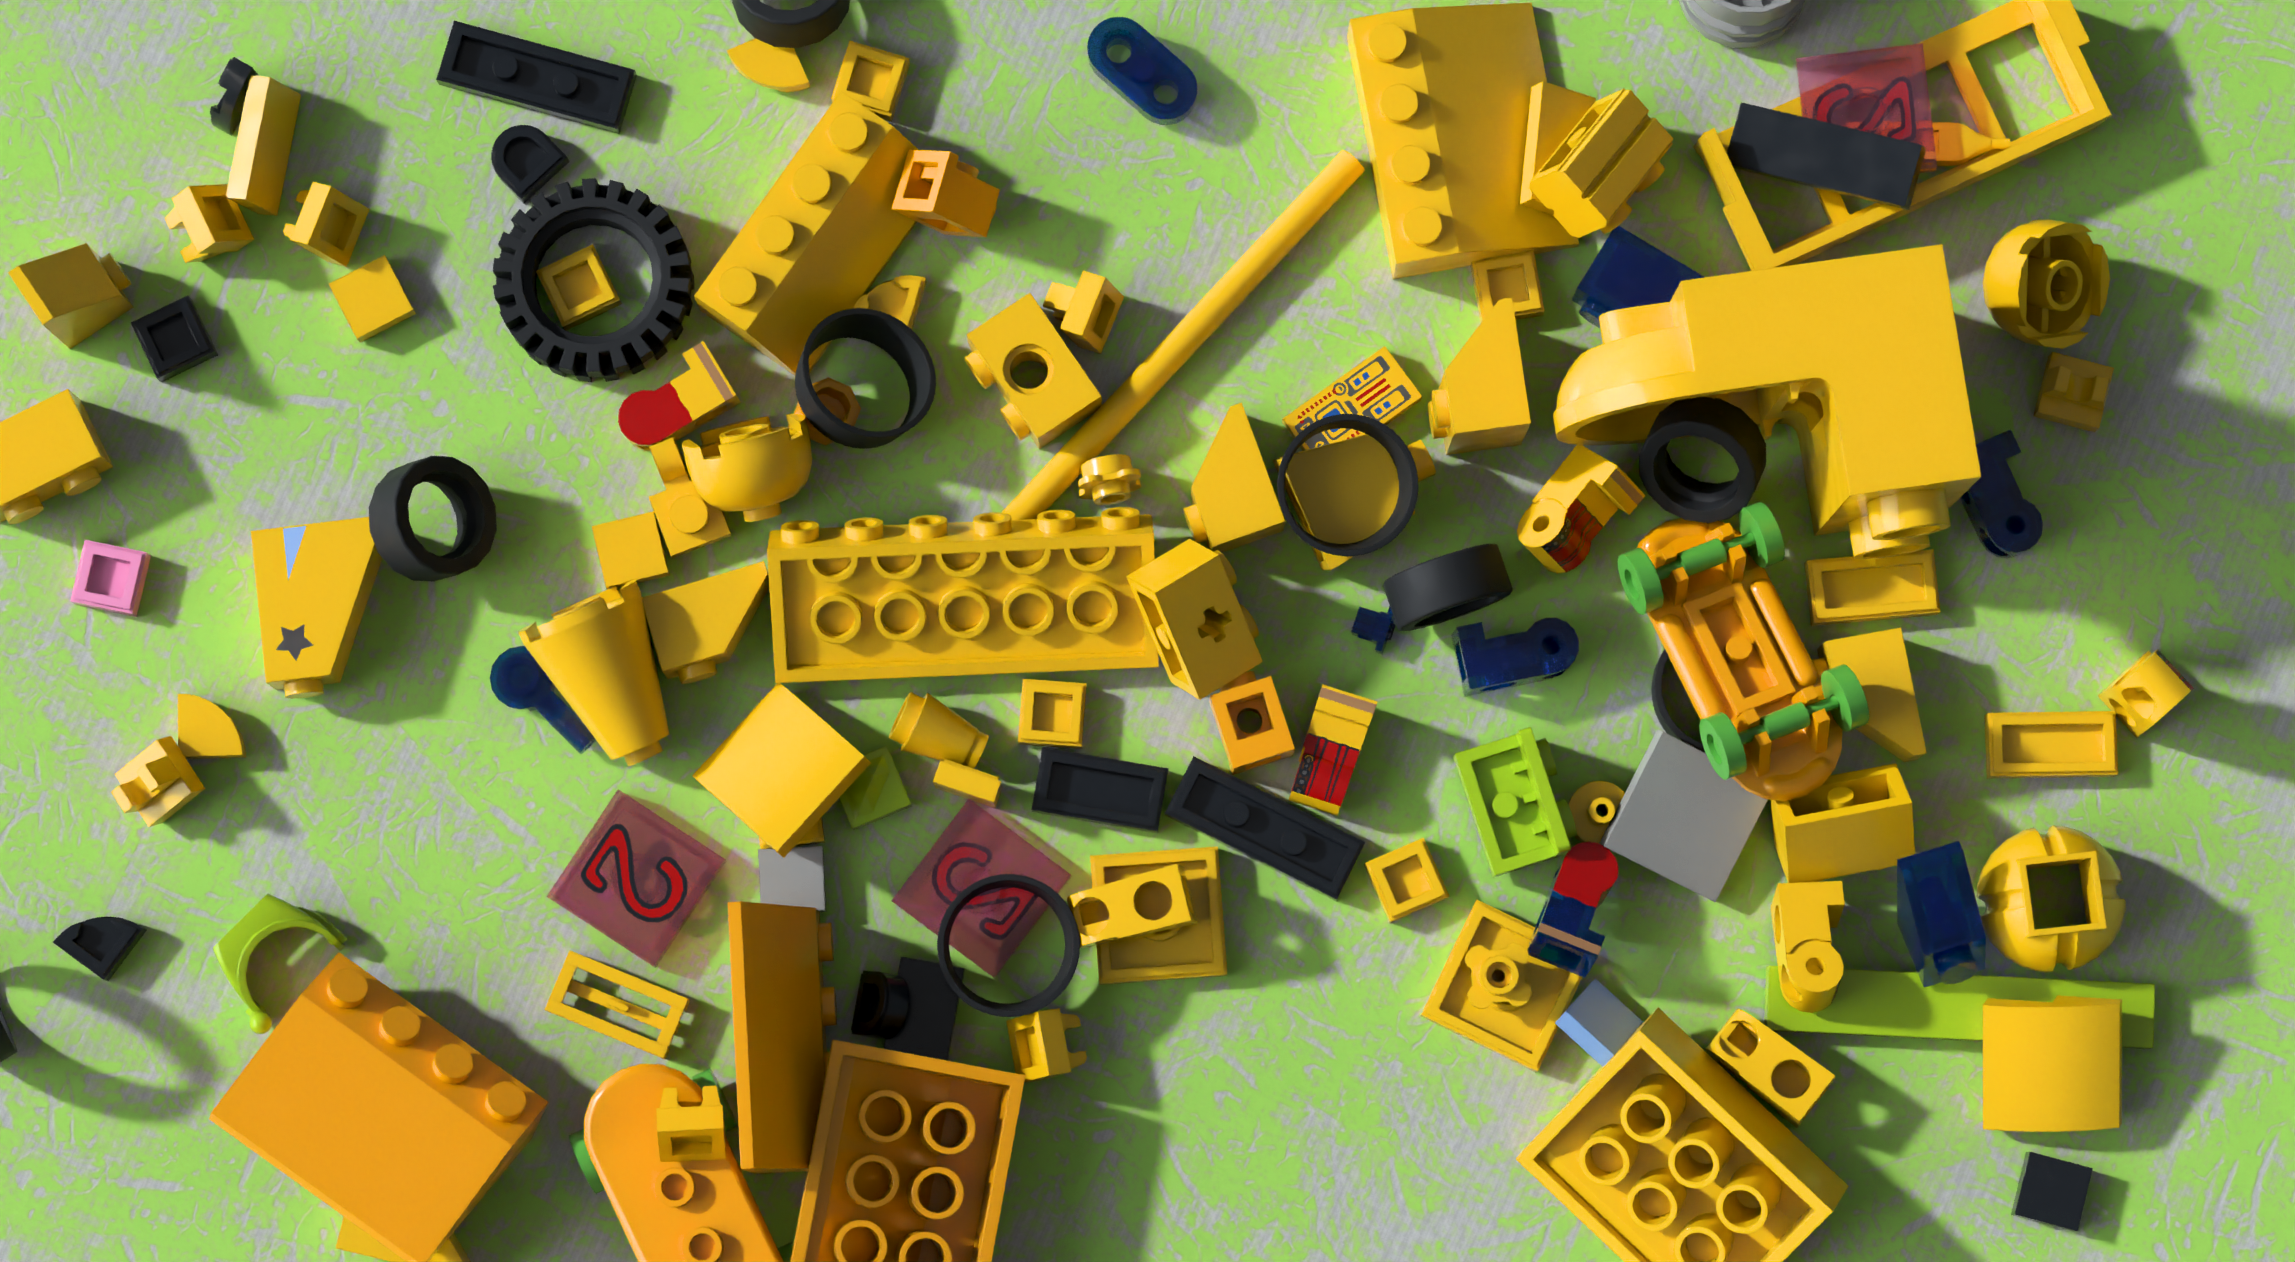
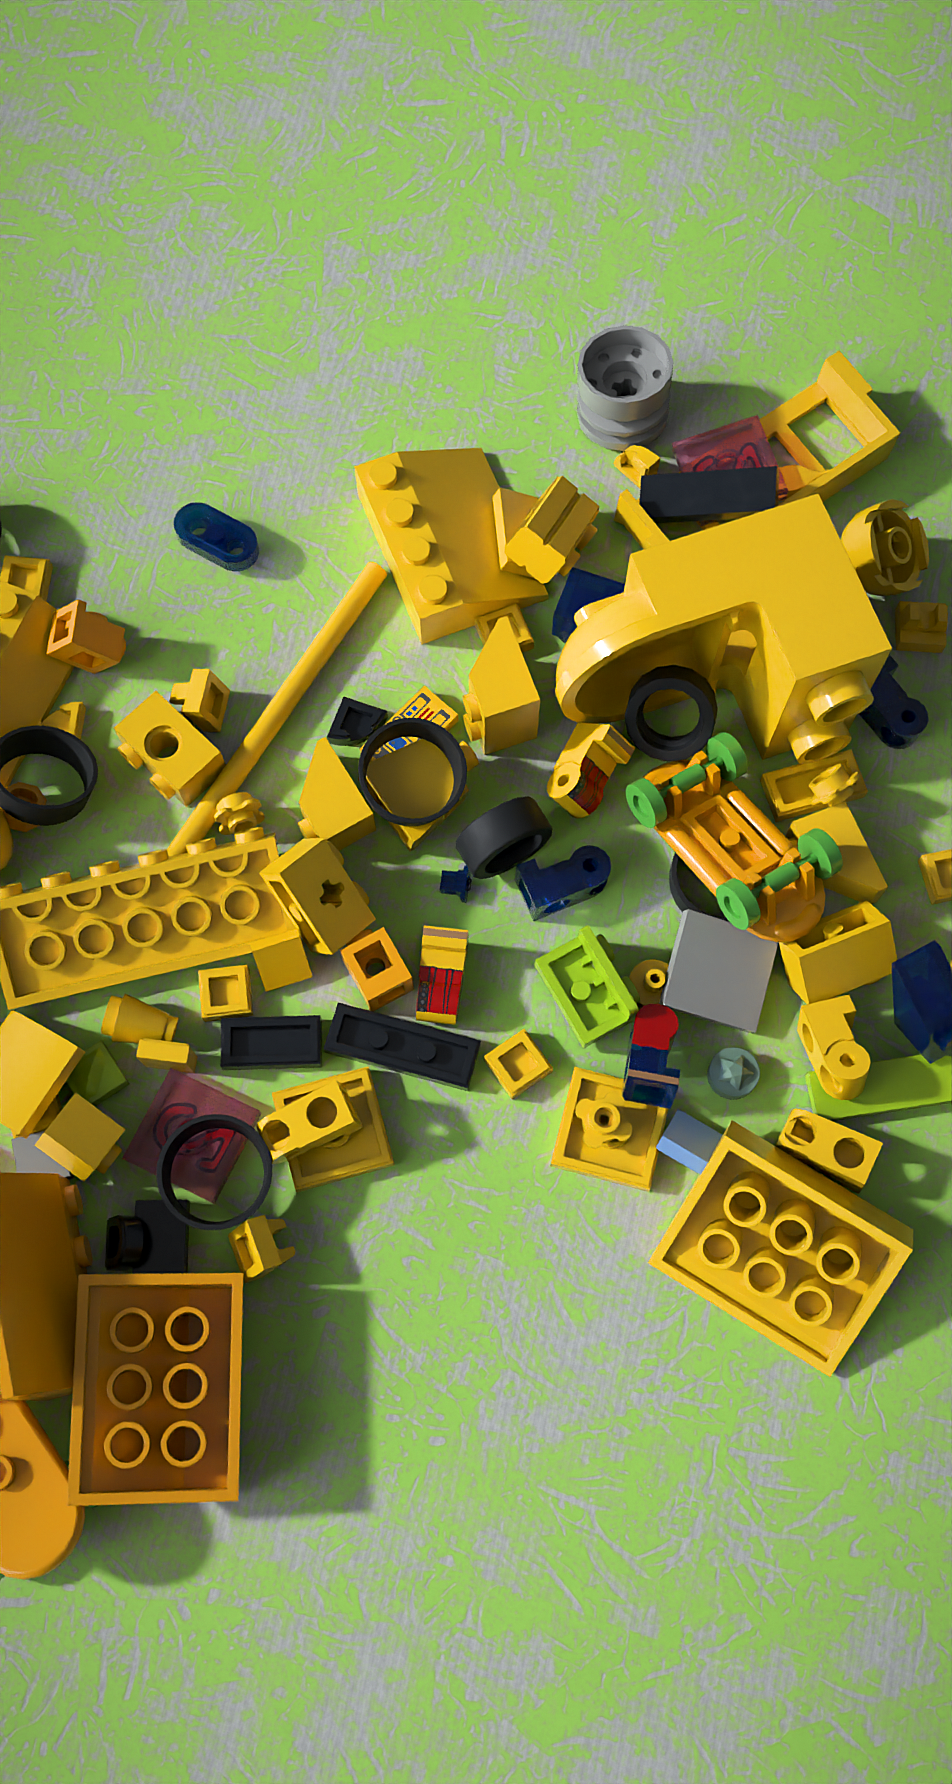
camera: 10 degrees left, 10 degrees down
(848, 868) = (82, 1138): none -> yellow brick
(1132, 687) = (281, 960): none -> yellow tile
(1283, 377) = (355, 722): none -> black tile
(1675, 947) = (733, 1073): none -> sand green tile
(1742, 76) = (637, 462): none -> yellow tile
(1890, 602) = (832, 786): none -> yellow plate

